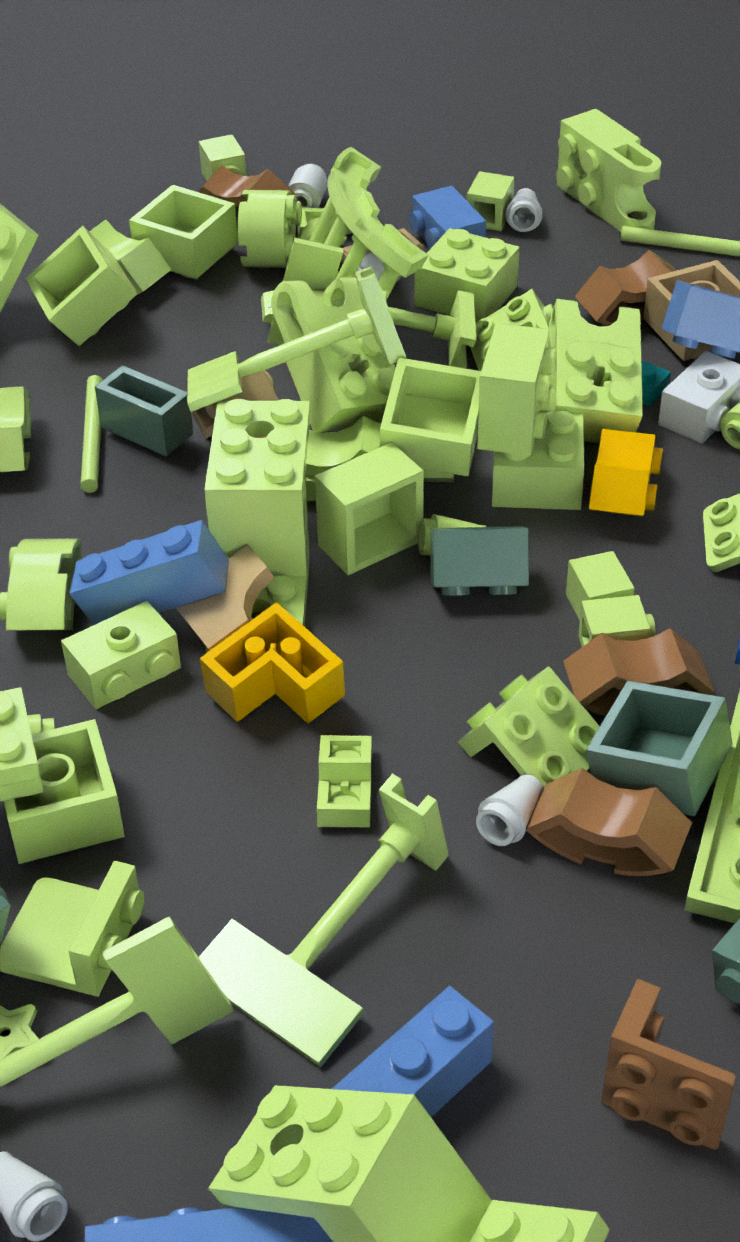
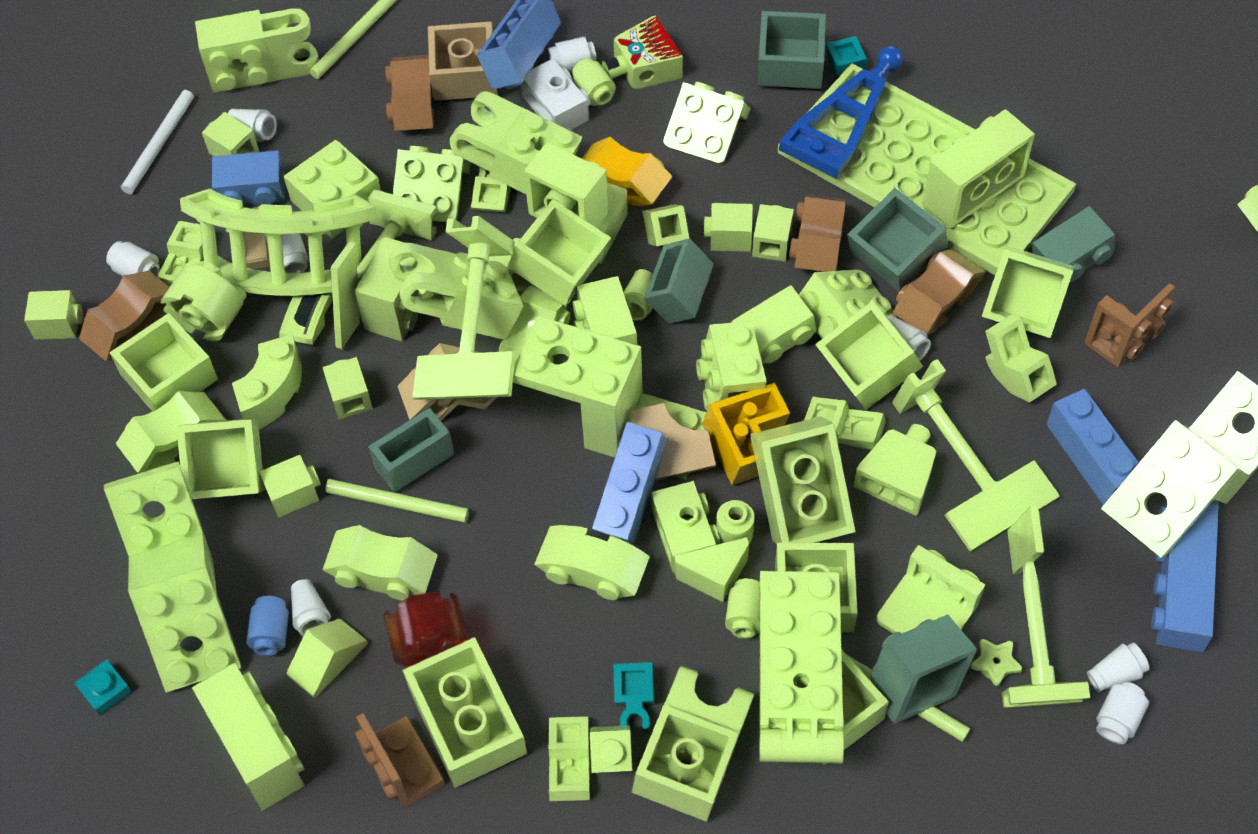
camera: 70 degrees left, 15 degrees up
(70, 694) = (713, 568): none -> yellowish green slope
(77, 349) = (290, 485): none -> yellowish green brick
(132, 696) = (735, 521): none -> yellowish green brick
(193, 722) = (803, 482): none -> yellowish green brick
(196, 302) = (271, 381): none -> yellowish green brick
(212, 343) = (347, 388): none -> yellowish green brick
(285, 849) = (898, 468): none -> yellowish green torso
(357, 609) = (729, 361): none -> yellowish green bracket
(446, 752) = (869, 355): none -> yellowish green piece
(456, 662) = (780, 324): none -> yellowish green brick
(468, 167) = (157, 142): none -> white bar
(530, 943) = (1015, 364): none -> yellowish green brick
(559, 524) = (665, 225): none -> yellowish green brick
(647, 913) = (1028, 288): none -> yellowish green piece

